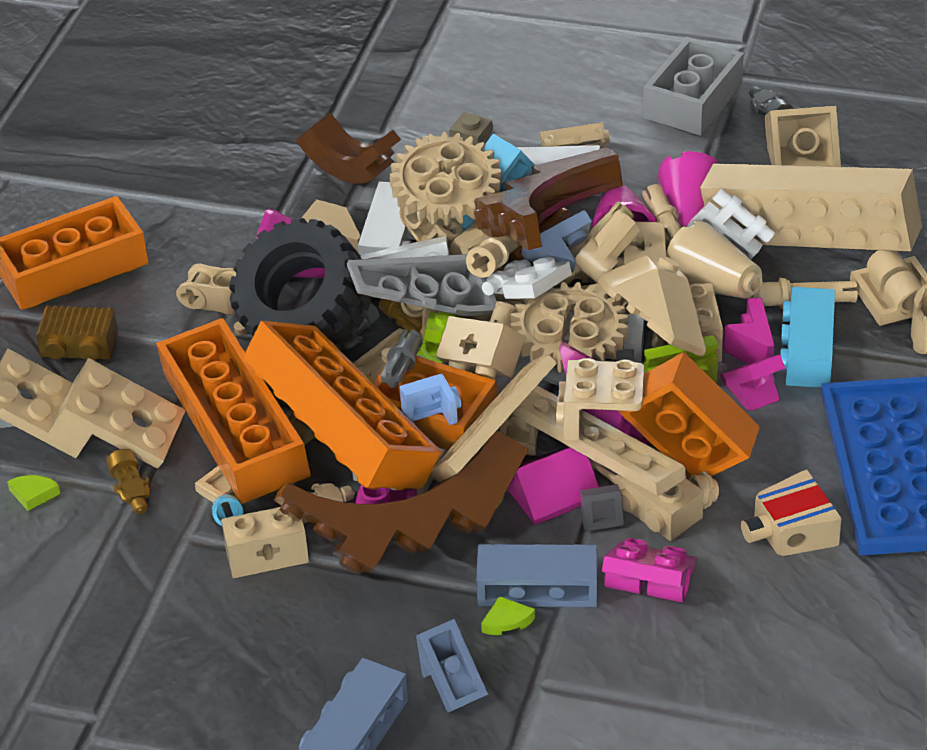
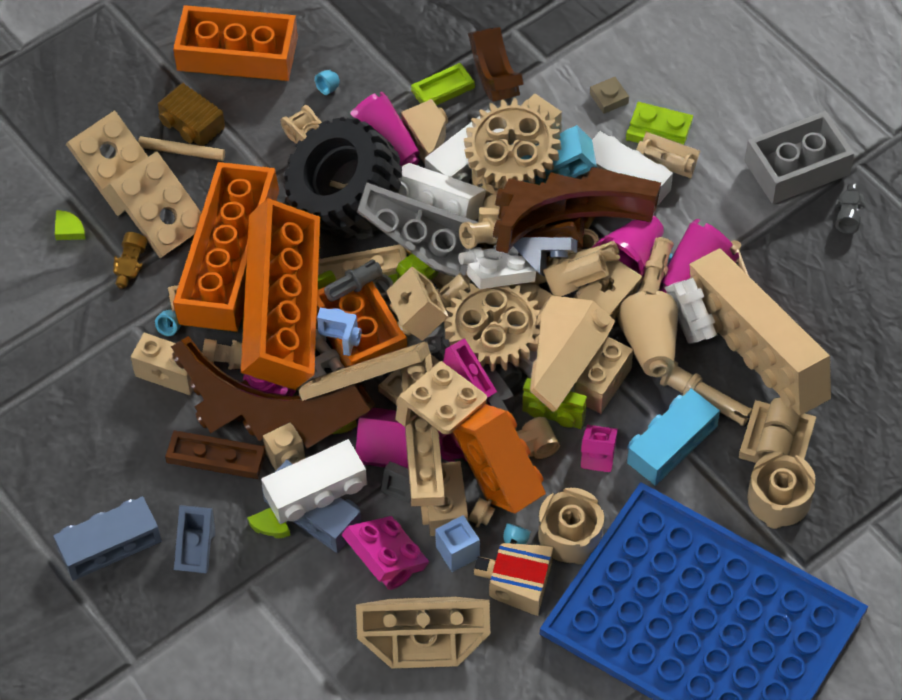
camera: 35 degrees right, 15 degrees up
(111, 361) = (182, 148): none -> tan bar
(186, 246) = (327, 81): none -> medium azure hinge
(309, 187) = (443, 85): none -> lime tile
(392, 590) = (215, 454): none -> reddish brown plate
(459, 542) = (283, 445): none -> tan brick
(525, 128) = (659, 121): none -> lime plate
(533, 539) = (314, 482): none -> white brick
(711, 523) = (457, 543): none -> light blue panel
(750, 487) = (517, 533): none -> medium azure hinge
(752, 337) = (632, 413): dark pink slope -> none
(762, 606) = (423, 630): none -> tan wedge
(801, 441) = (571, 525): none -> tan brick
(803, 137) = (834, 260): tan slope -> none

